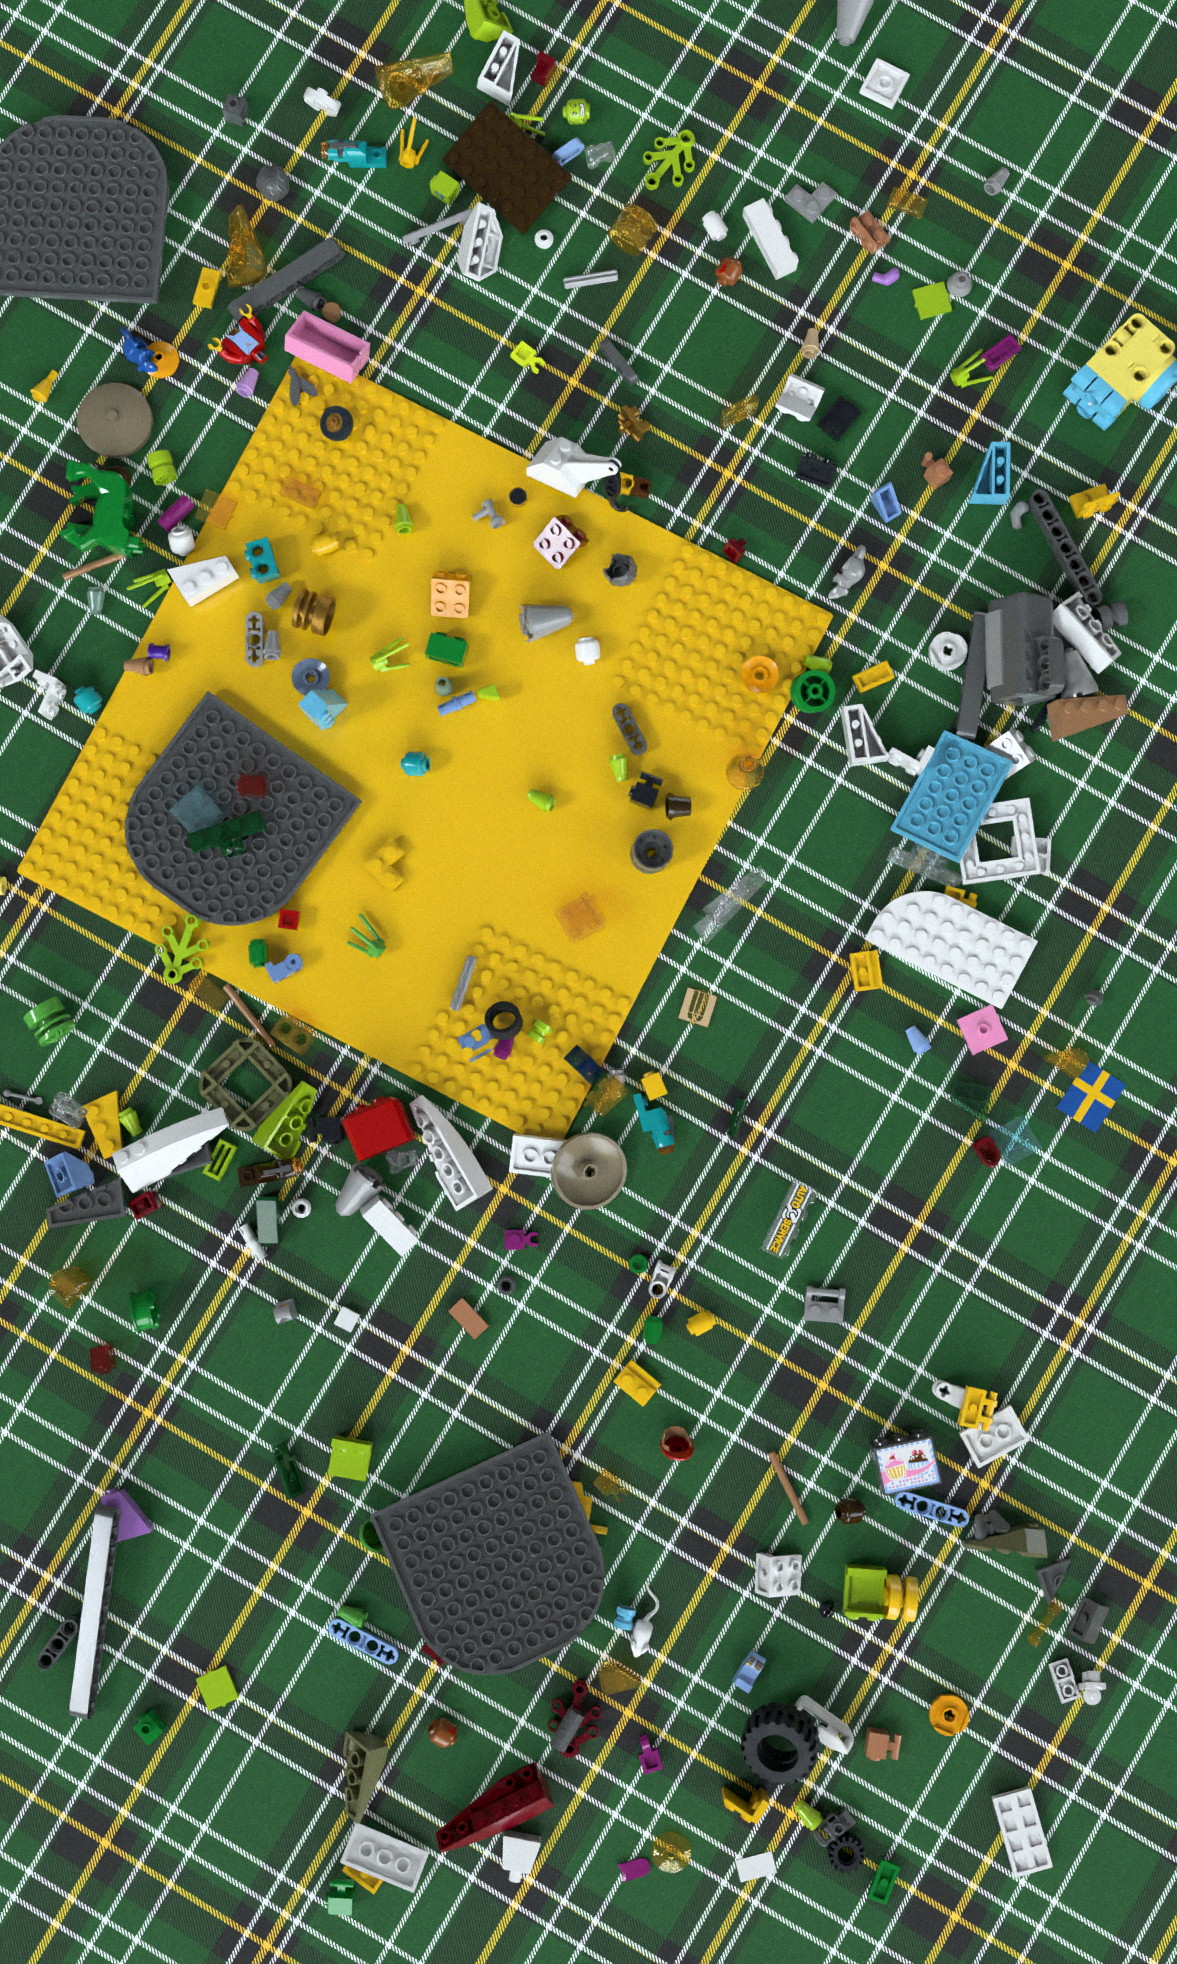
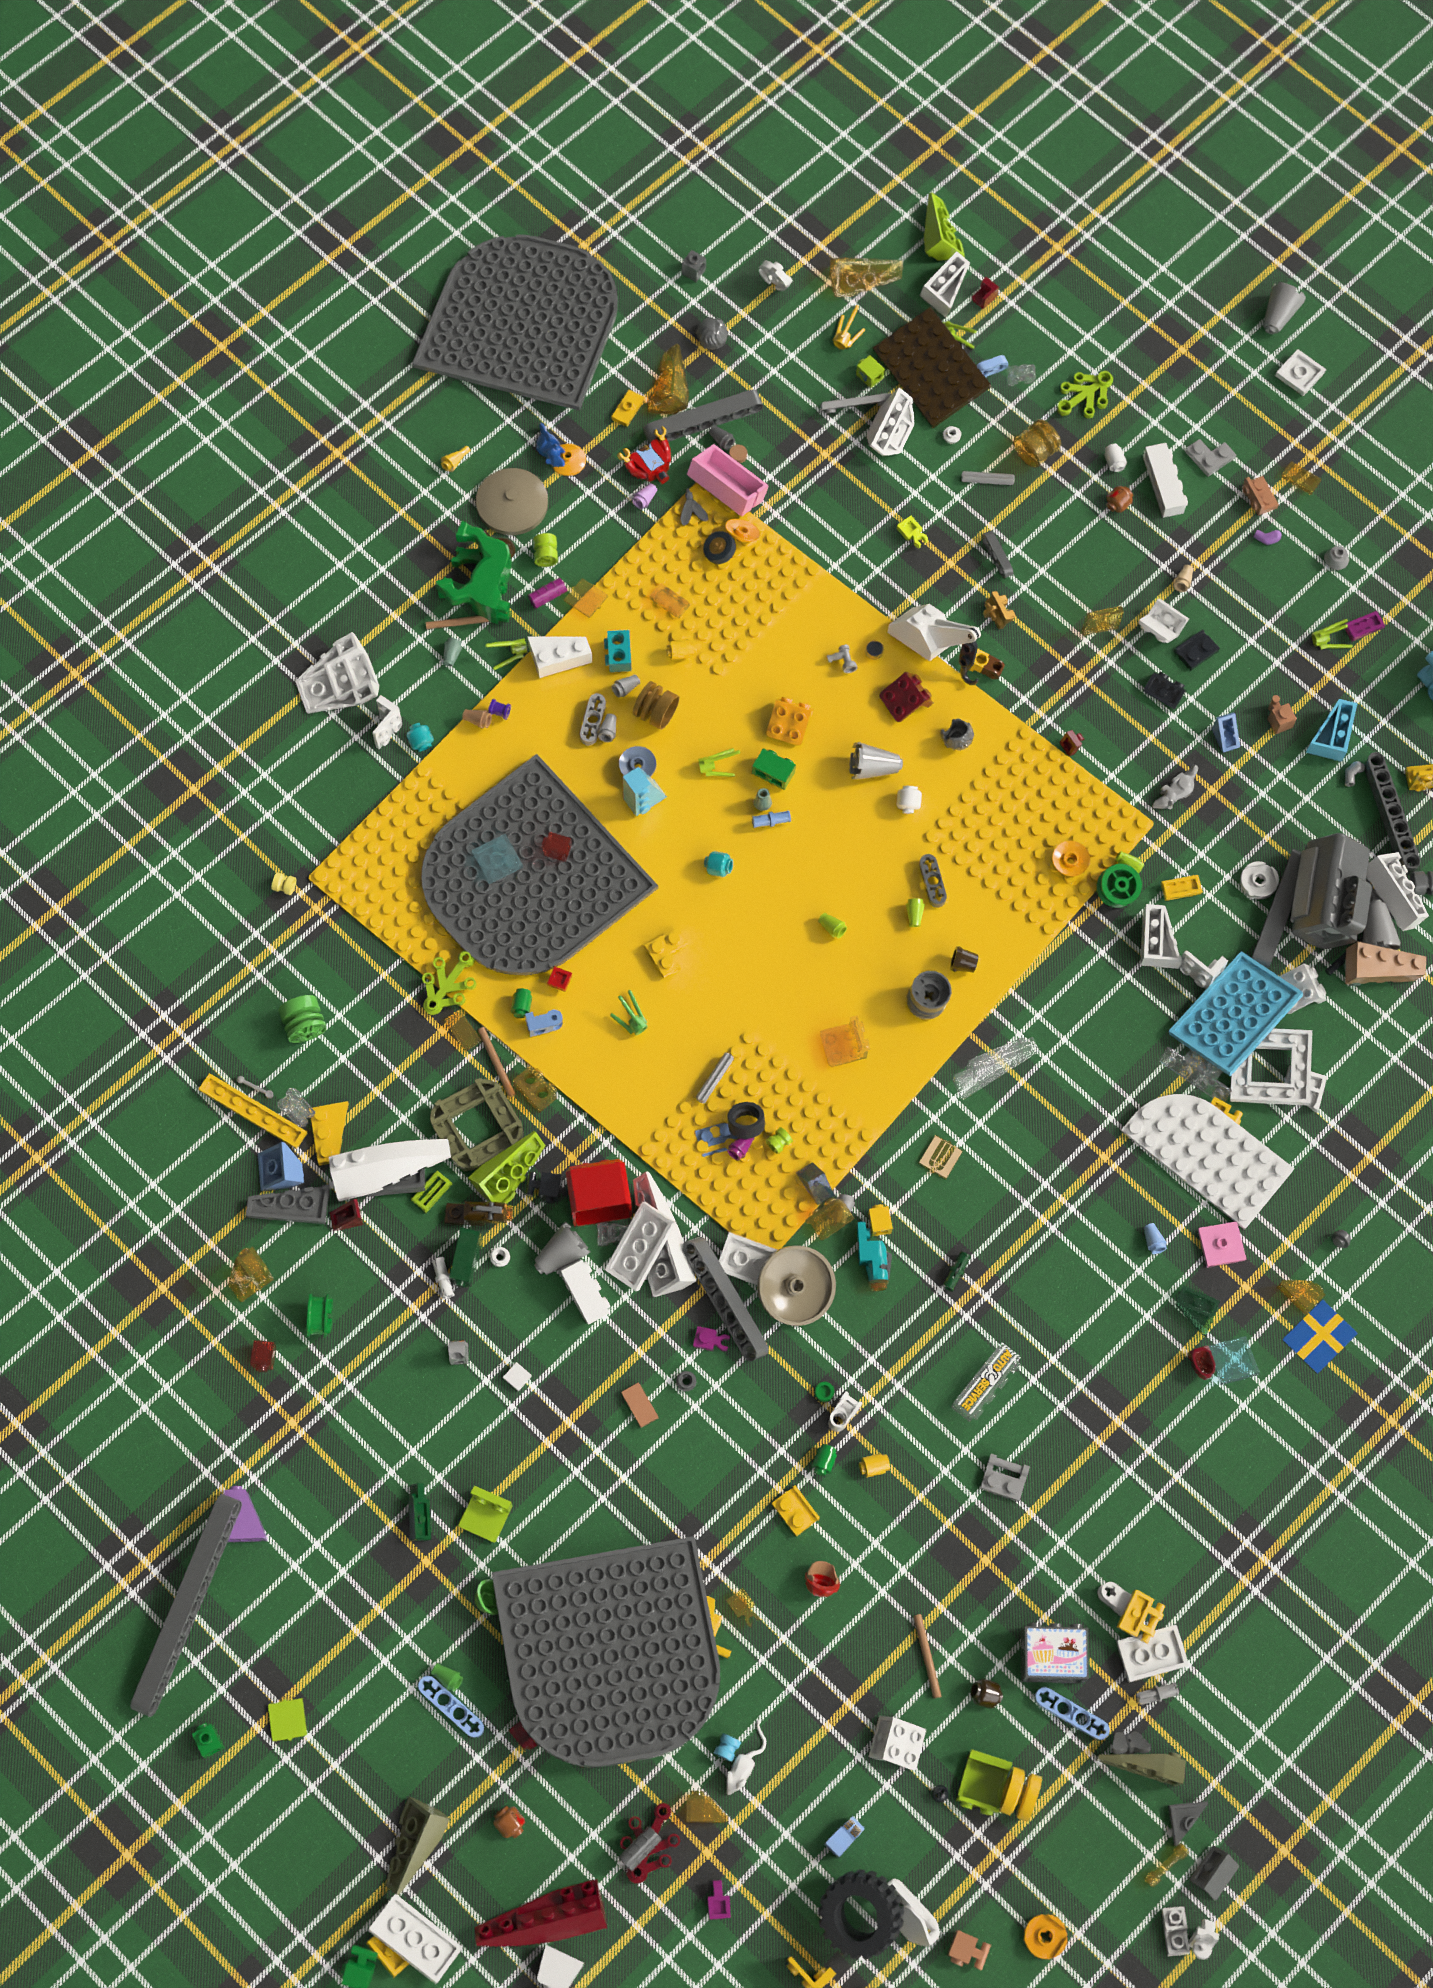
camera: 10 degrees right, 15 degrees down
(54, 1650) = (130, 1631): dark grey beam -> none
(130, 1121) = (353, 1131): lime cone -> none
(181, 540) = (546, 617): white head -> none
(227, 834) = (521, 884): dark green plate -> none
(355, 399) = (742, 530): none -> light orange dish
(356, 153) = (794, 325): teal plate -> none
(403, 522) = (760, 646): lime cone -> none
(432, 1169) = (640, 1246): none -> white plate
(489, 692) = (804, 816): lime slope -> none
(524, 1199) = (725, 1299): none -> dark grey beam
(576, 111) = (1008, 334): lime head -> none
(644, 794) = (934, 942): black brick -> none
(744, 771) = (1037, 943): clear yellow cone -> none
(866, 970) = (1116, 1160): yellow plate -> none
(932, 300) = (1307, 567): lime piece -> none
(996, 181) = (1388, 478): light grey cone -> none
(1005, 1472) = (1157, 1694): none -> light grey axle

